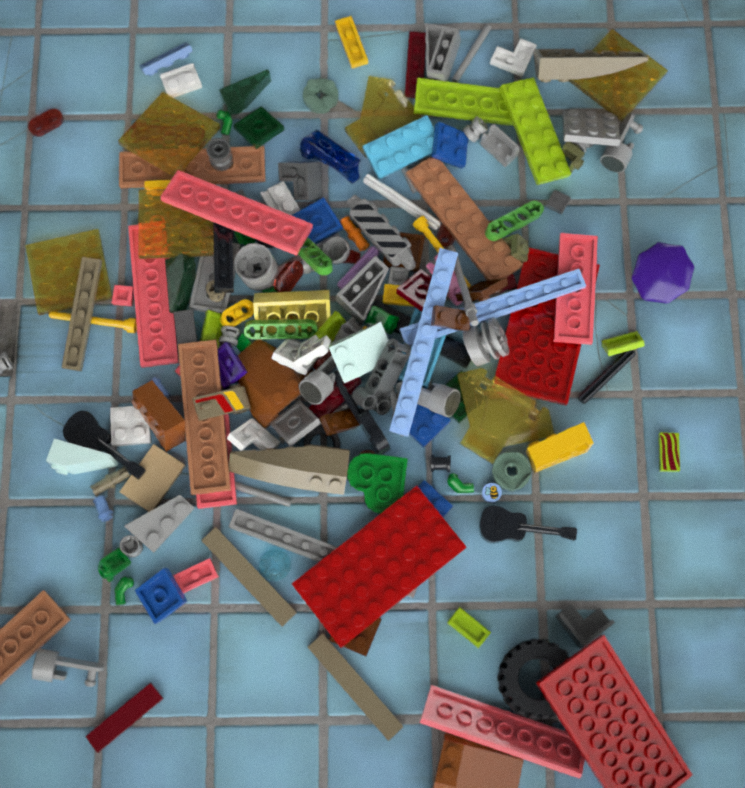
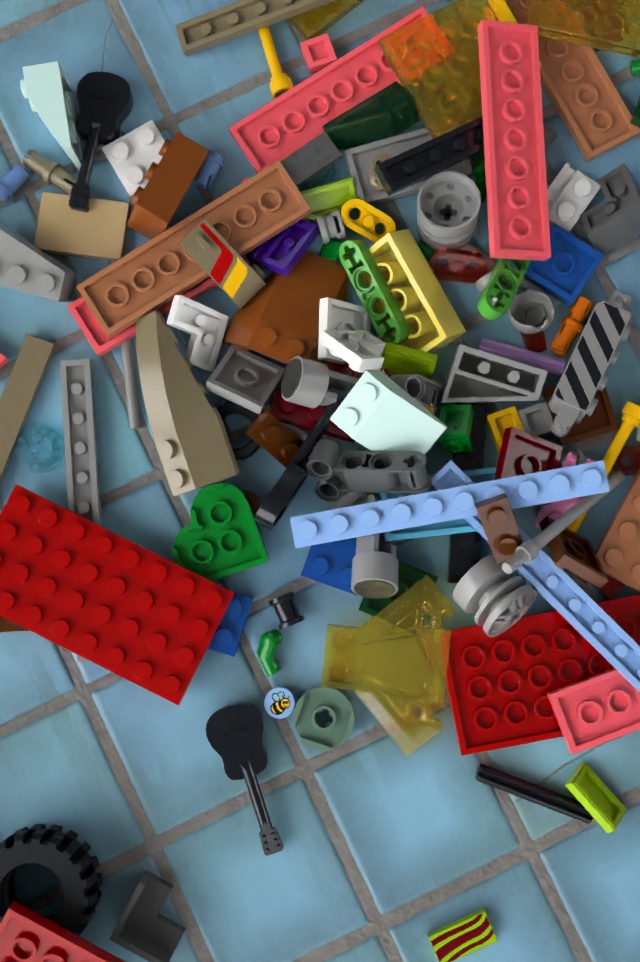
camera: 65 degrees right, 10 degrees up
(219, 154) = (593, 72): dark grey wheel -> none
(468, 627) = (74, 757): lime tile -> none
(559, 447) = (389, 773): yellow wedge -> none

